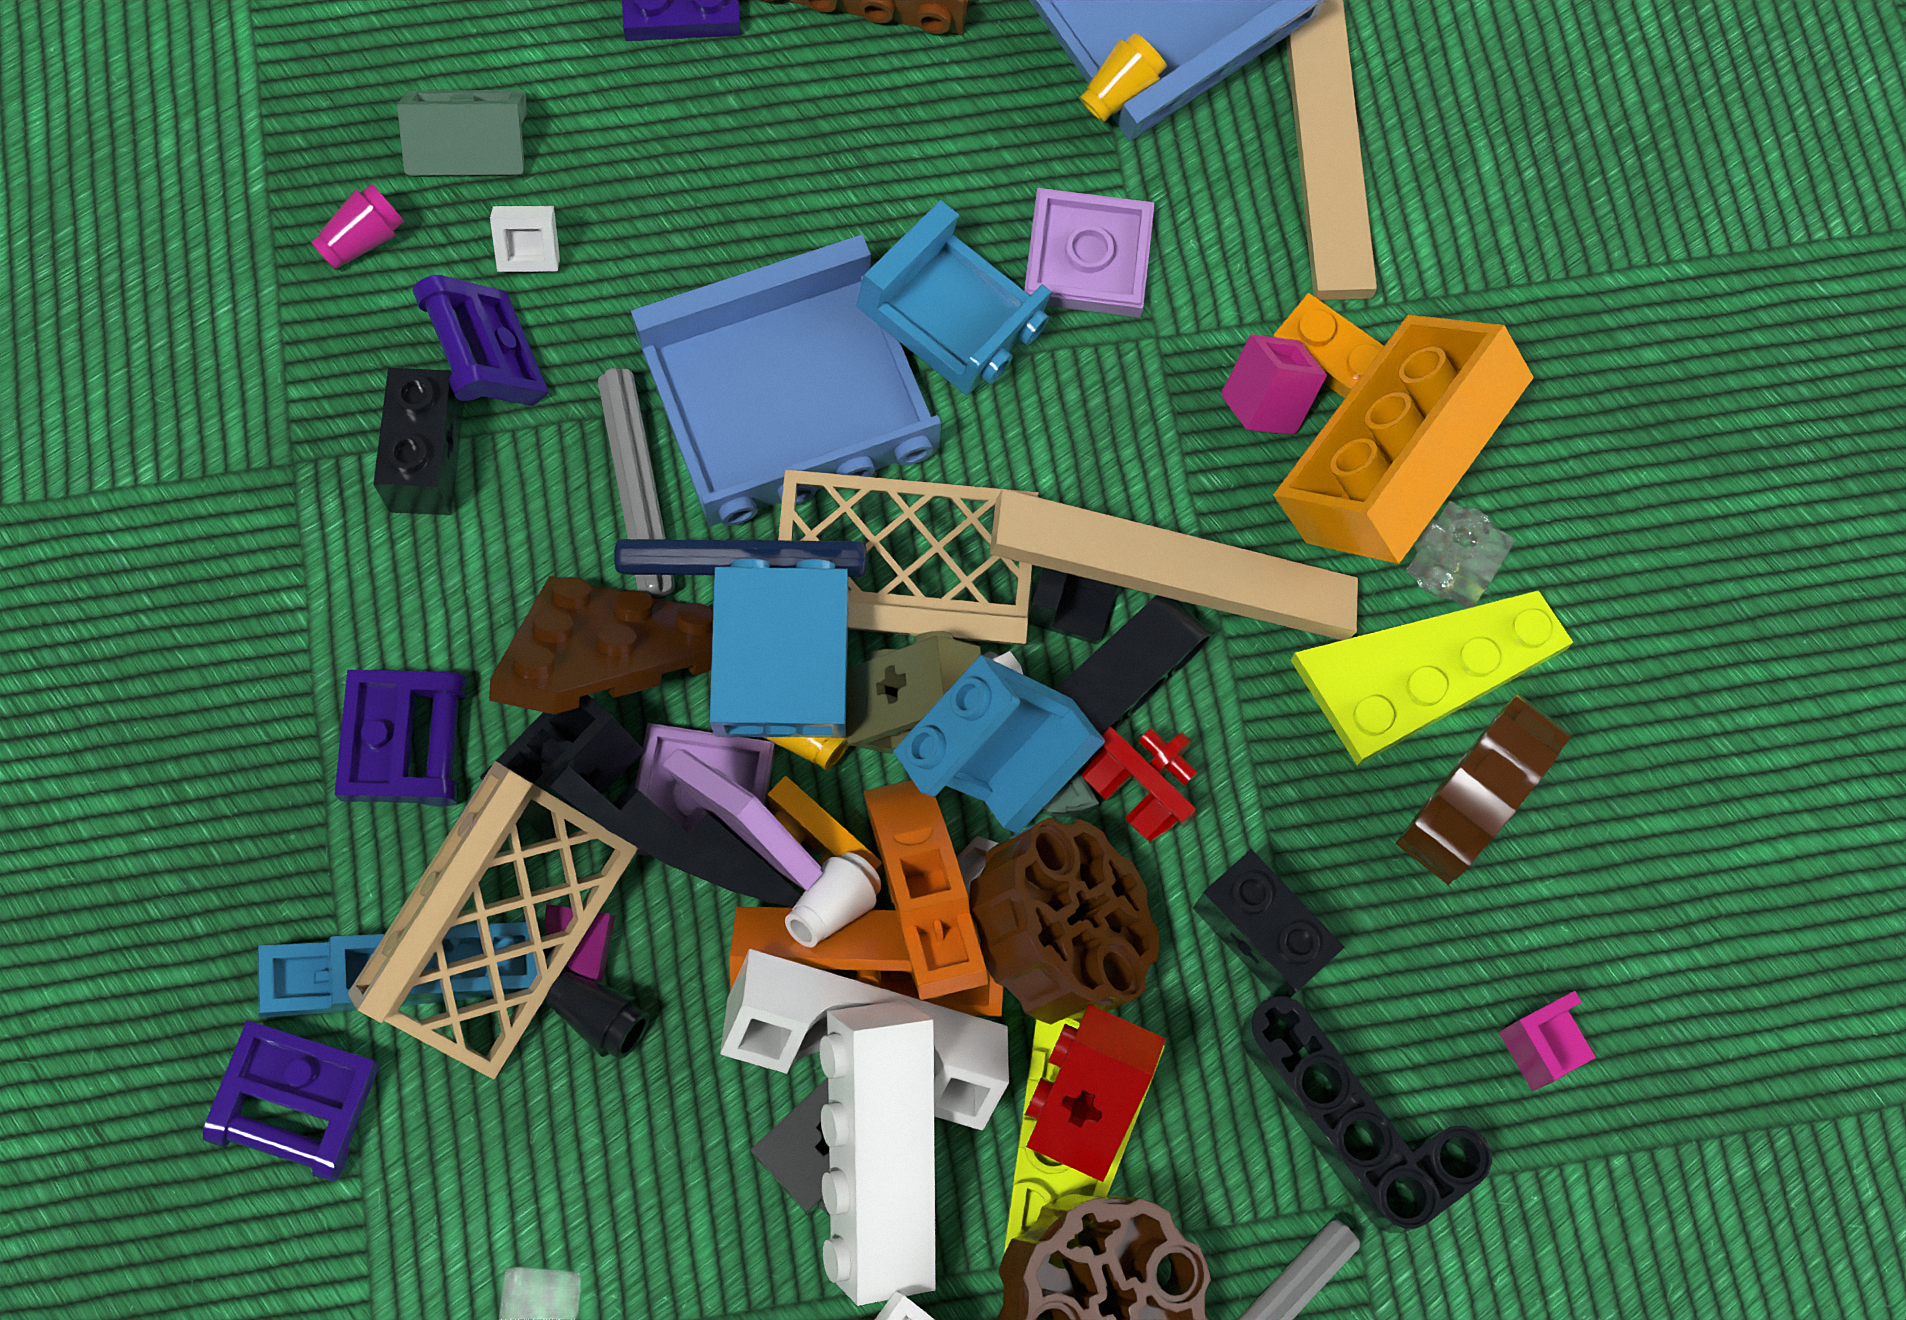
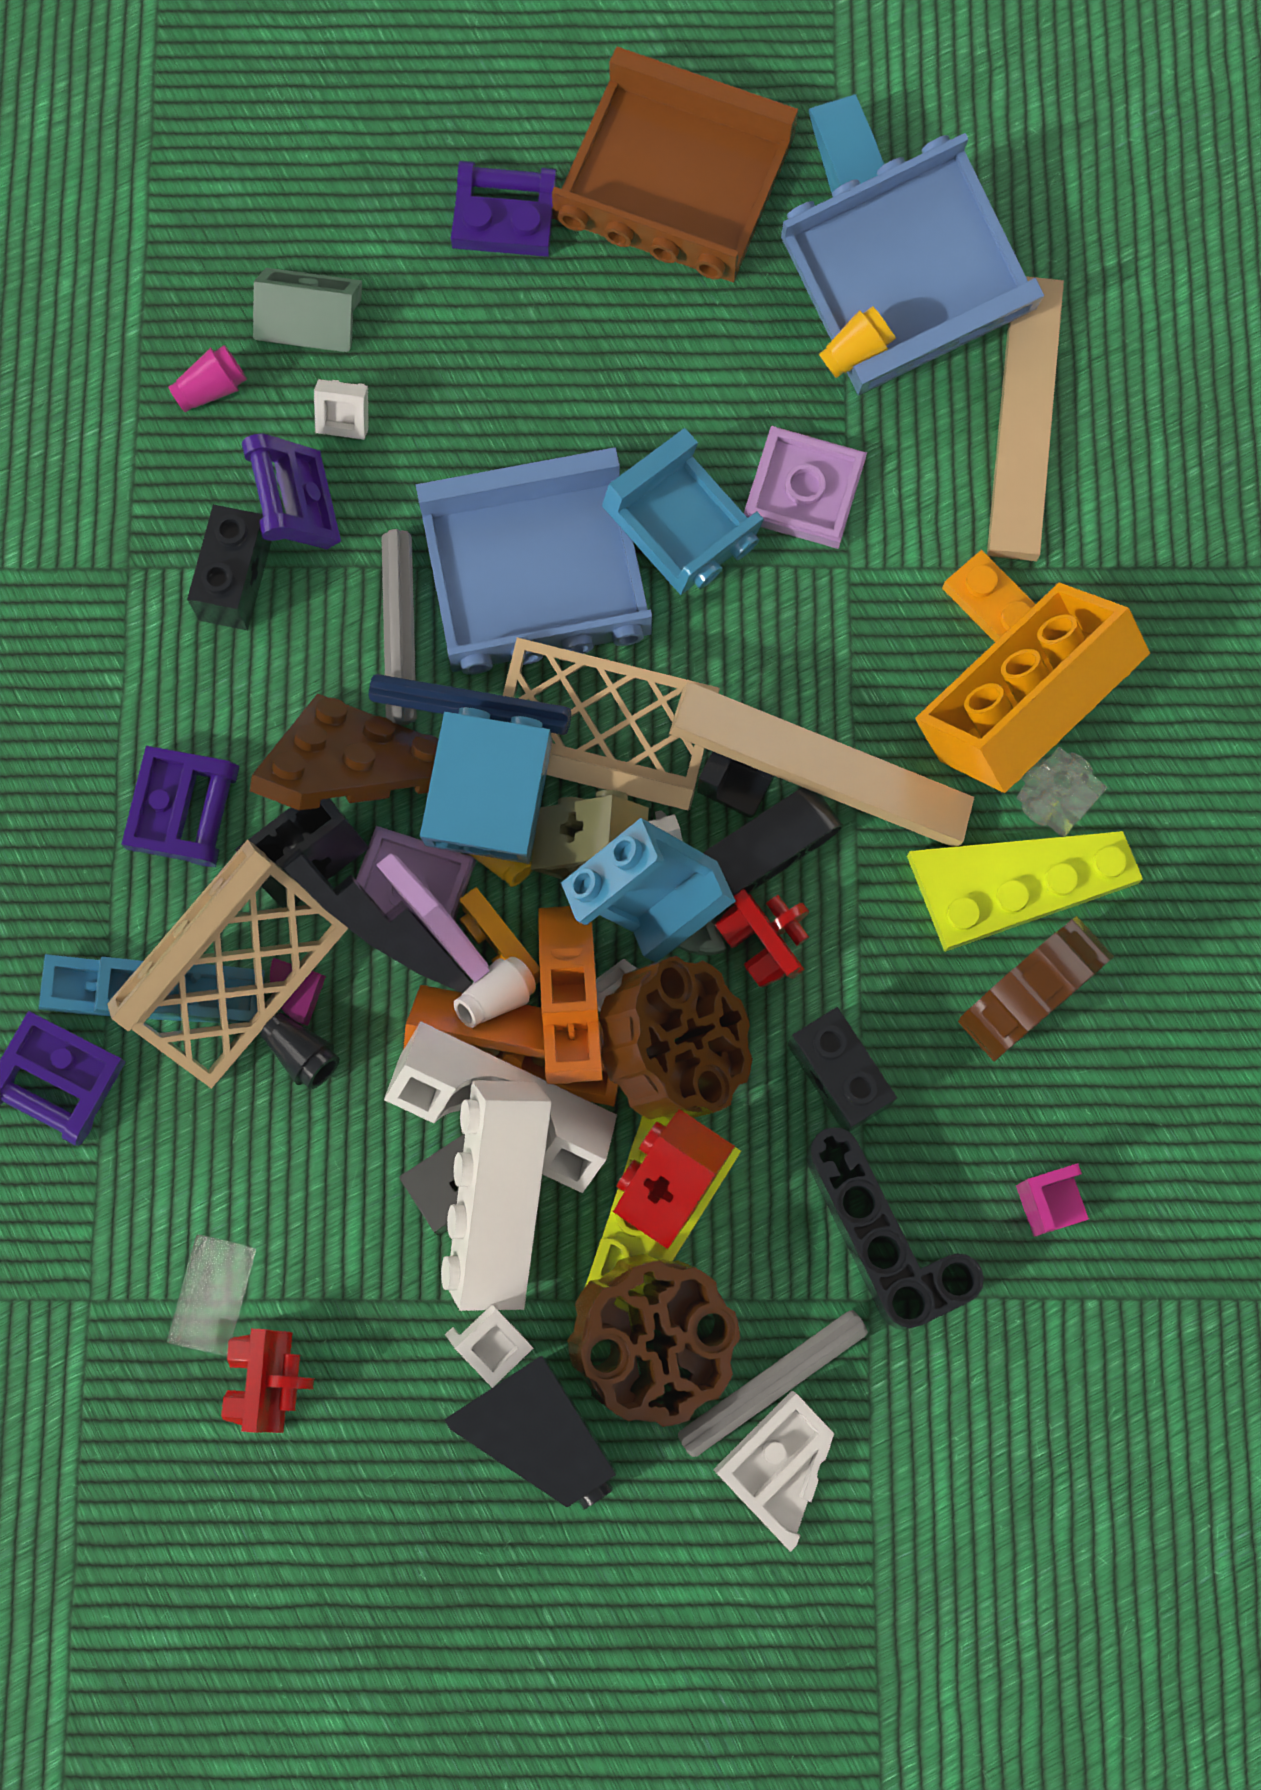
camera: 15 degrees right, 5 degrees up
(1273, 384) = (935, 624): dark pink panel -> none

